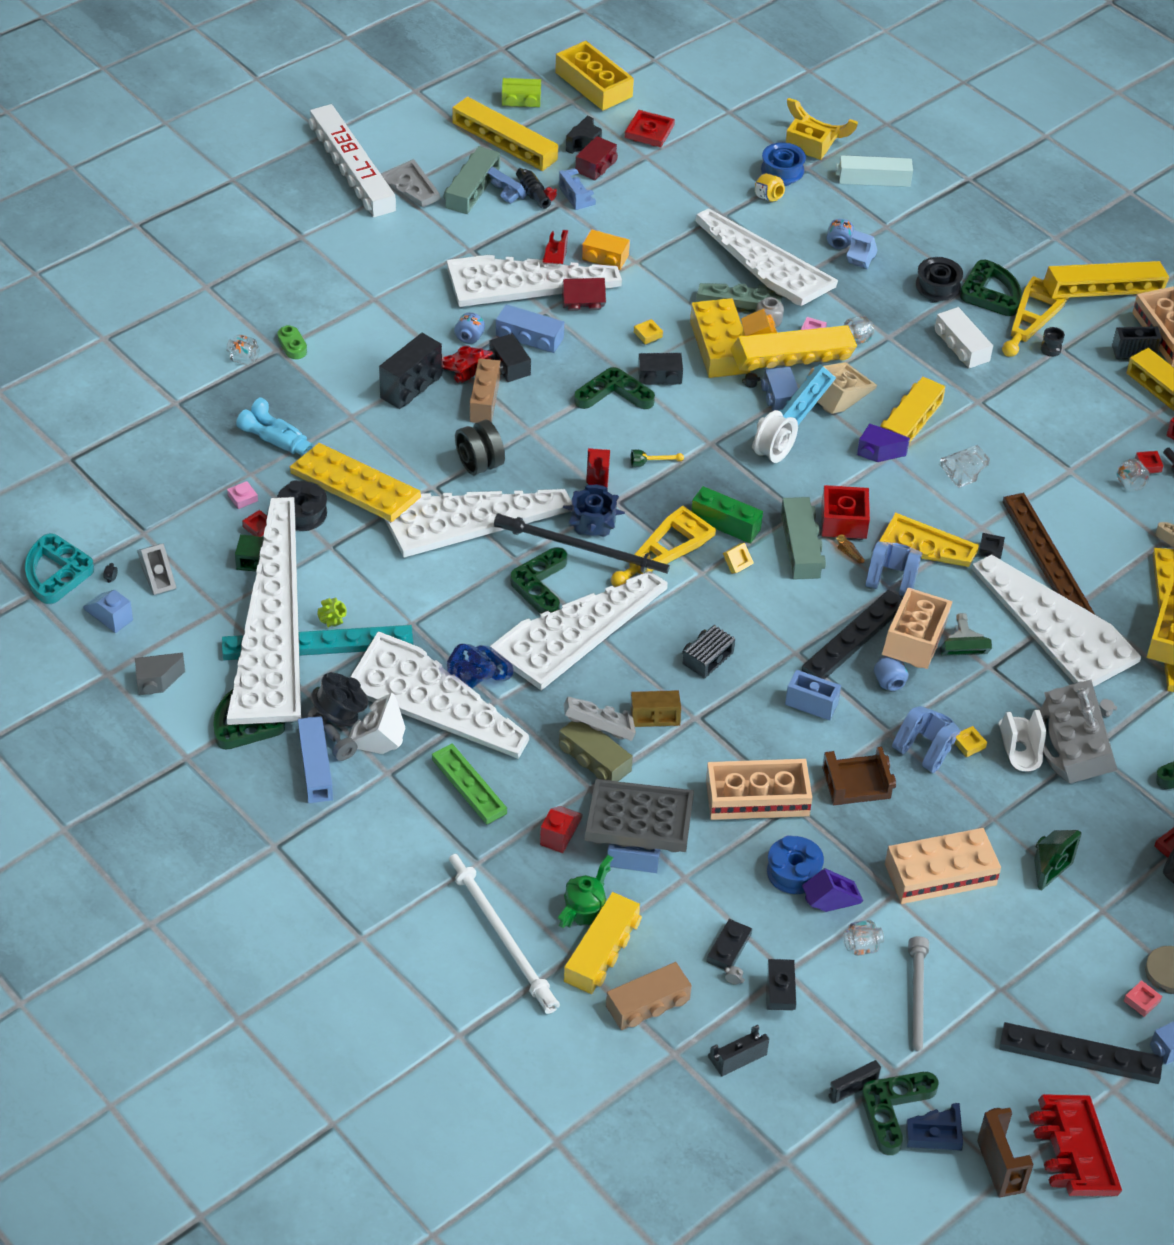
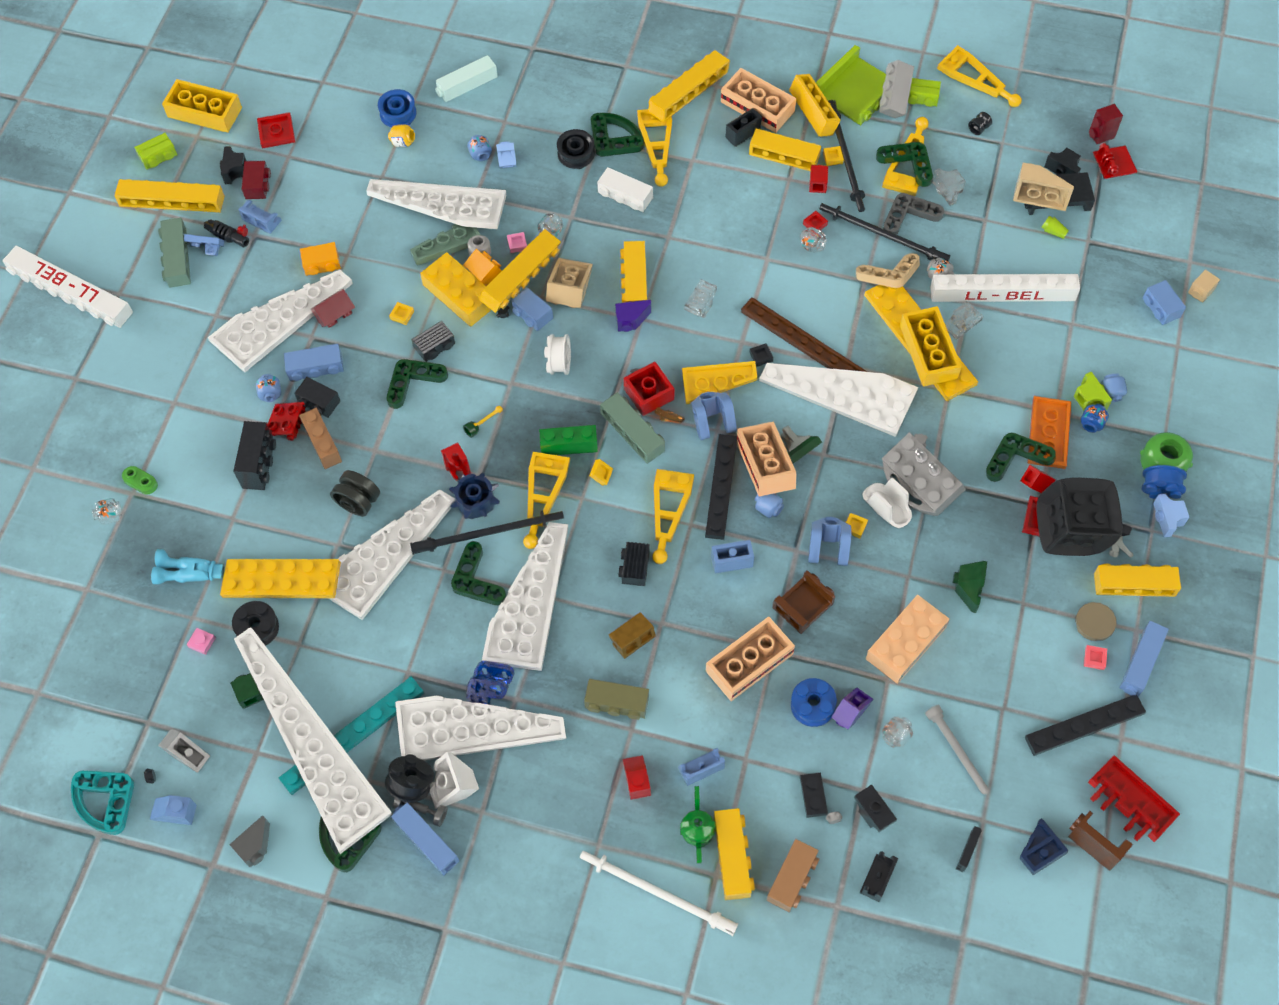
camera: 30 degrees left, 15 degrees up
(255, 523) = (232, 661): red plate -> none
(332, 612) = (346, 704): lime gear -> none
(412, 183) = (129, 281): light grey wing -> none
(469, 783) = (548, 784): bright green plate -> none
(556, 250) = (284, 280): red hinge -> none
(604, 719) = (607, 672): light grey wing -> none
(639, 815) = (688, 735): dark grey plate -> none
(800, 602) = (673, 482): none -> yellow plate
(808, 394) = (558, 307): medium azure plate -> none
(813, 135) = (400, 71): yellow piece -> none
(886, 1101) = (994, 845): dark green beam -> none
(1052, 341) = (686, 158): black wheel -> none

